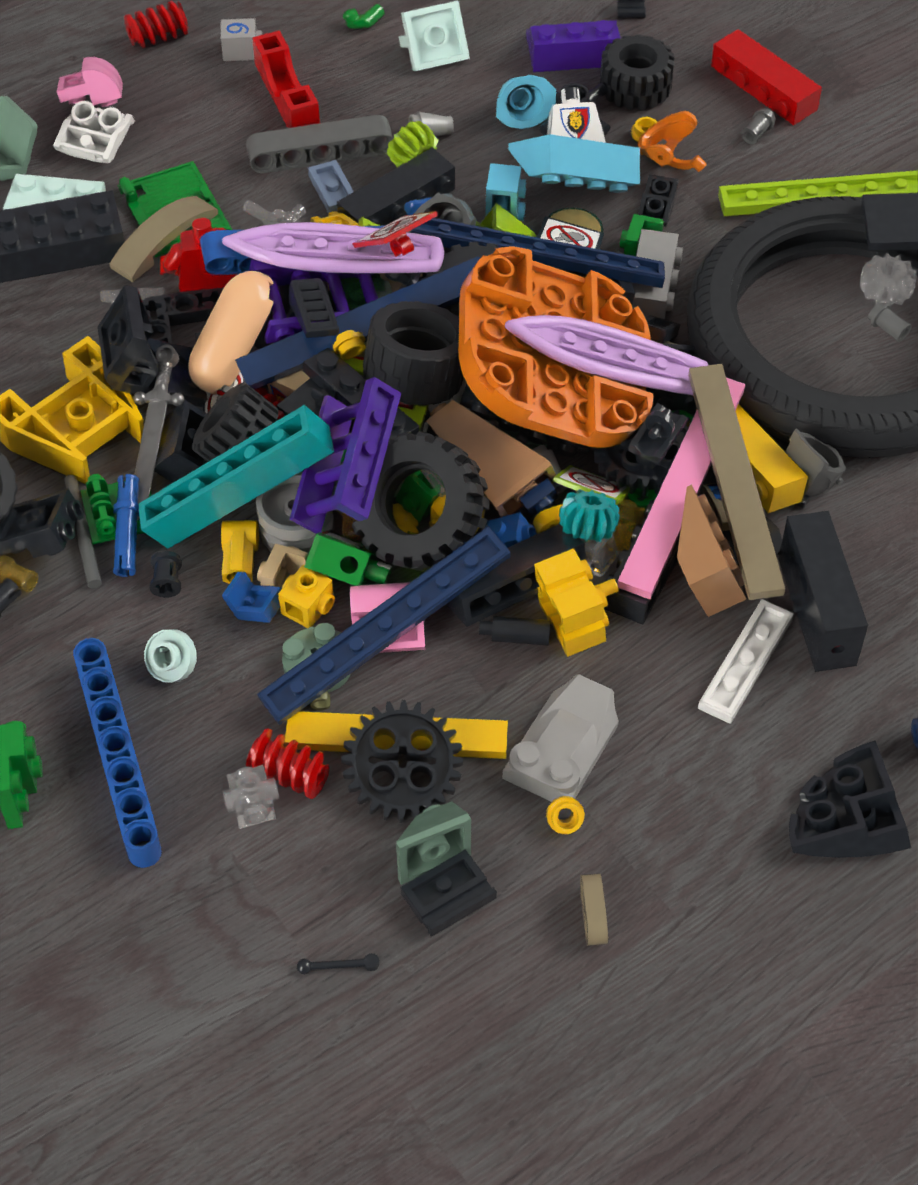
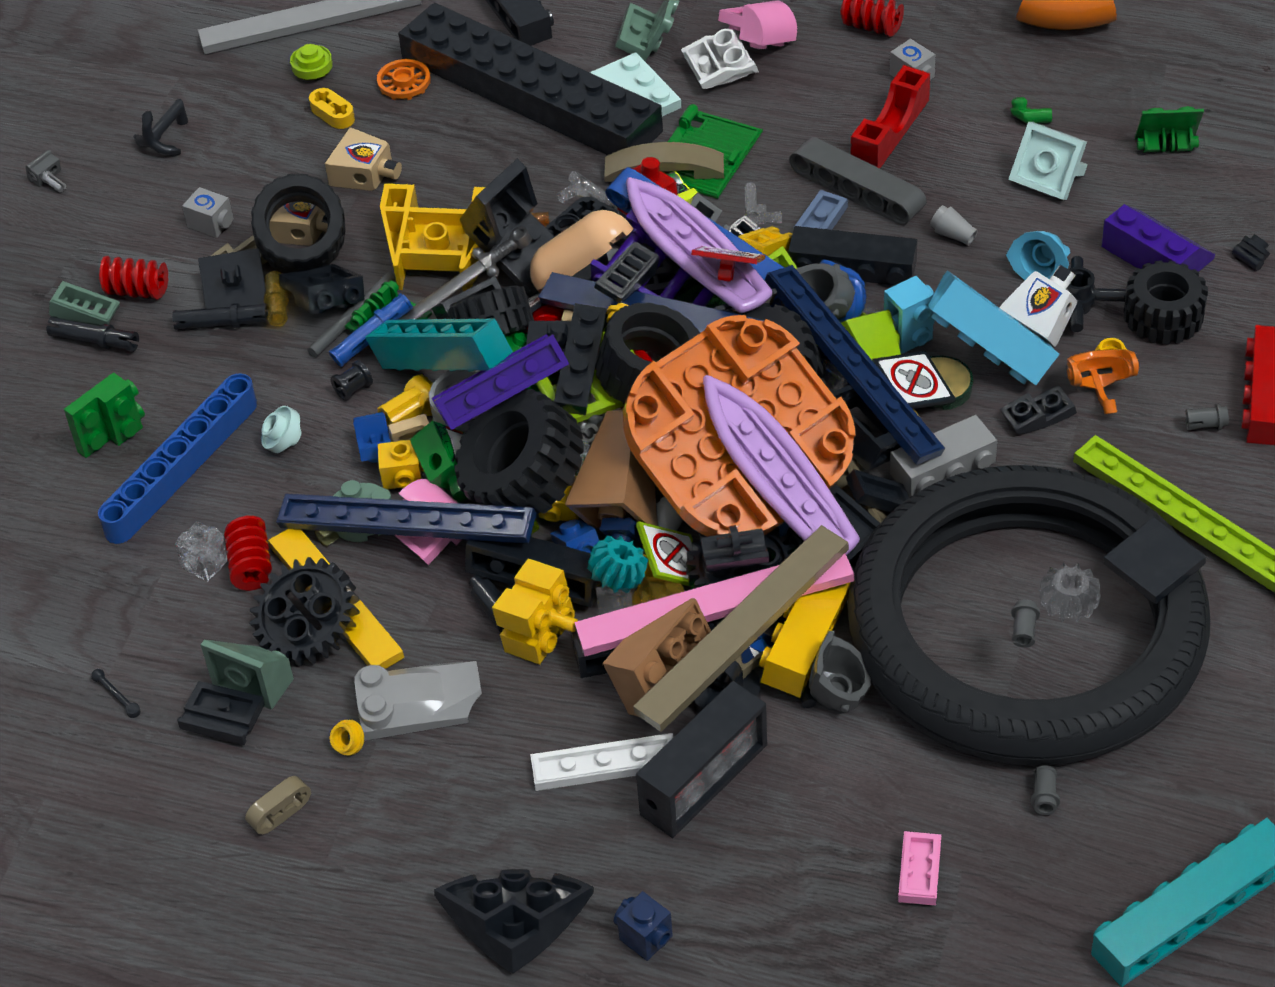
camera: 55 degrees right, 5 degrees down
(411, 142) = (909, 223): lime gear -> none
(630, 238) = (986, 413): green bracket -> none

